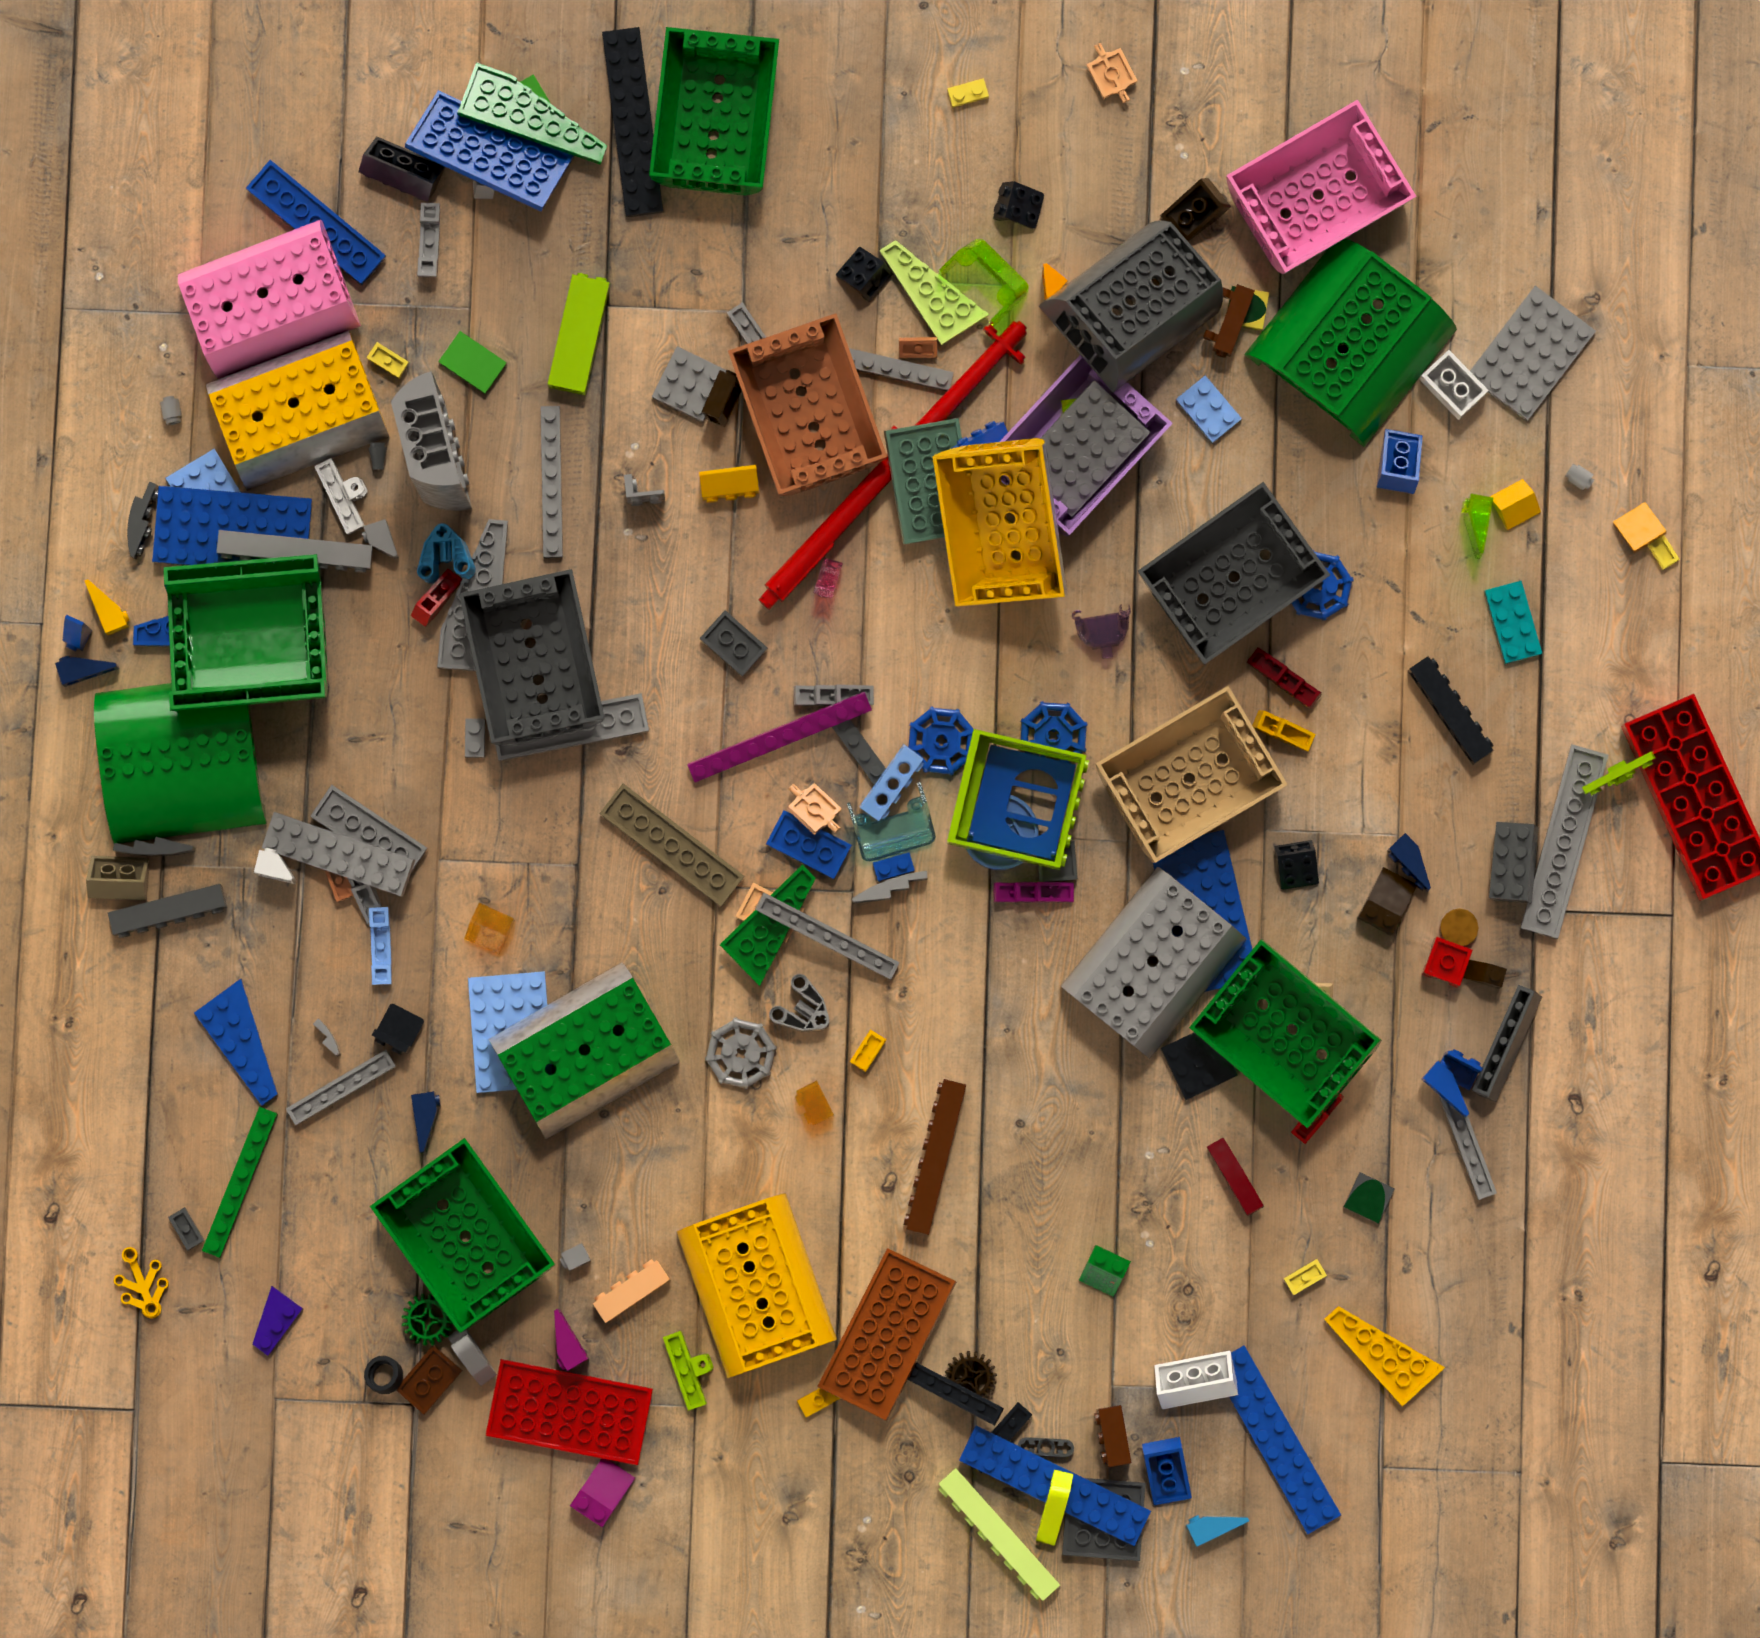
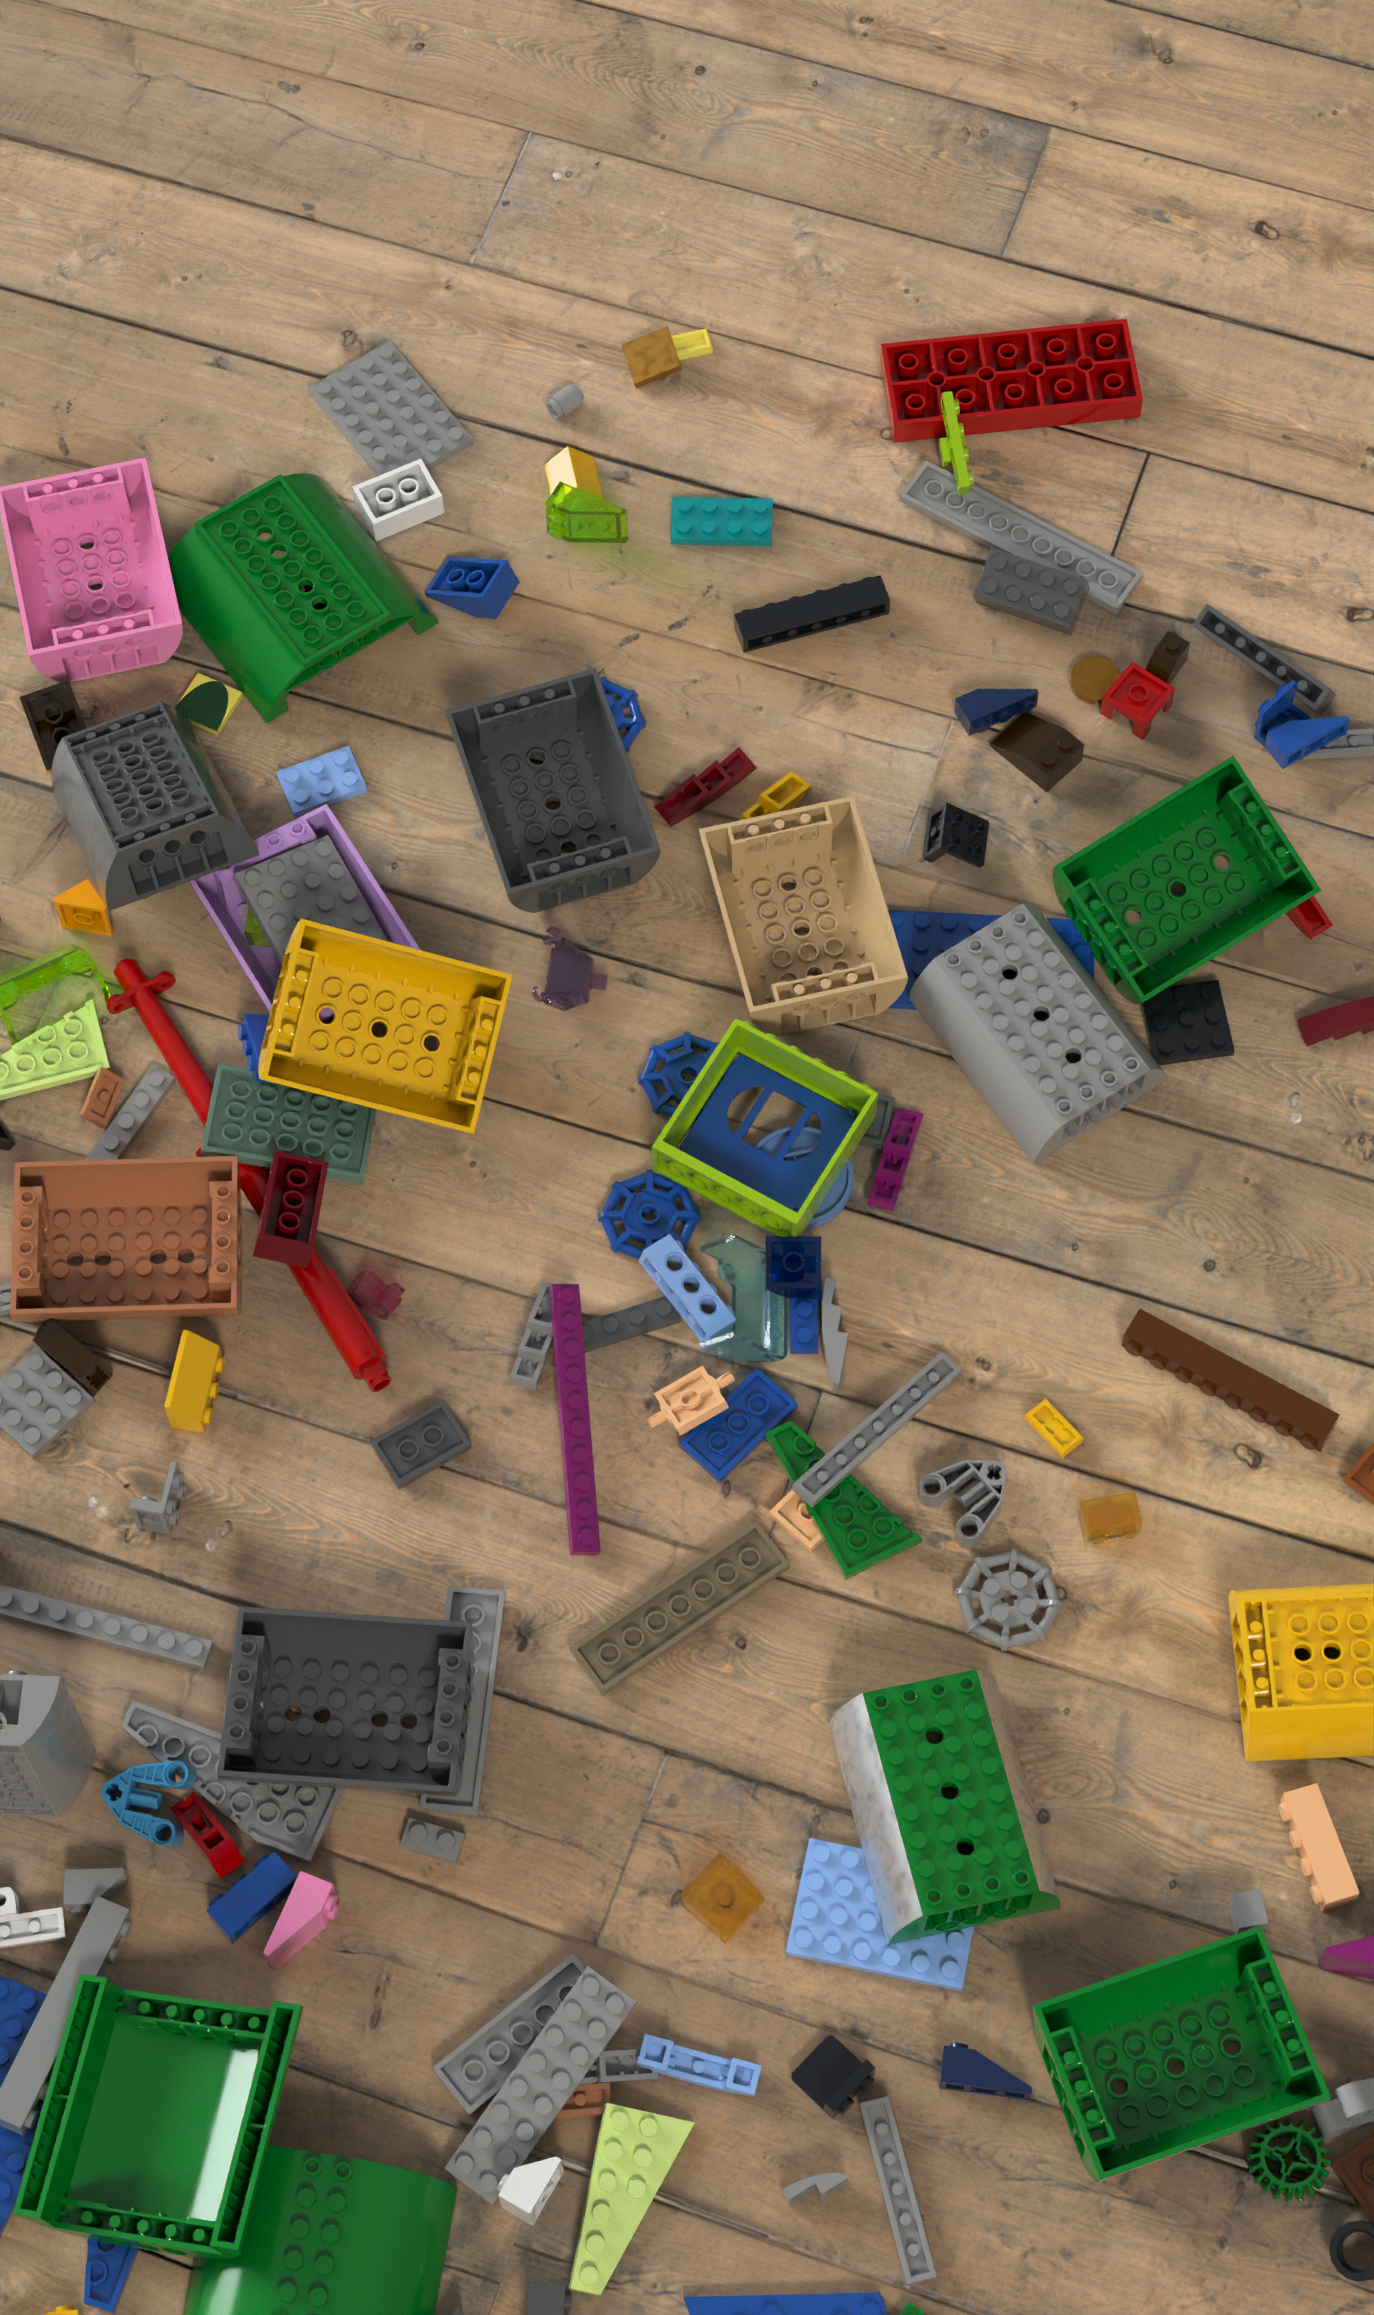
camera: 70 degrees left, 20 degrees down
(302, 922) = (626, 2173): none -> yellowish green wing
(402, 675) = (302, 1918): none -> bright pink slope
(405, 639) = (252, 1896): none -> blue brick
(860, 505) = (290, 1209): none -> dark red brick
(928, 847) = (794, 1266): none -> clear blue slope
(1232, 322) = (219, 717): reddish brown brick -> none

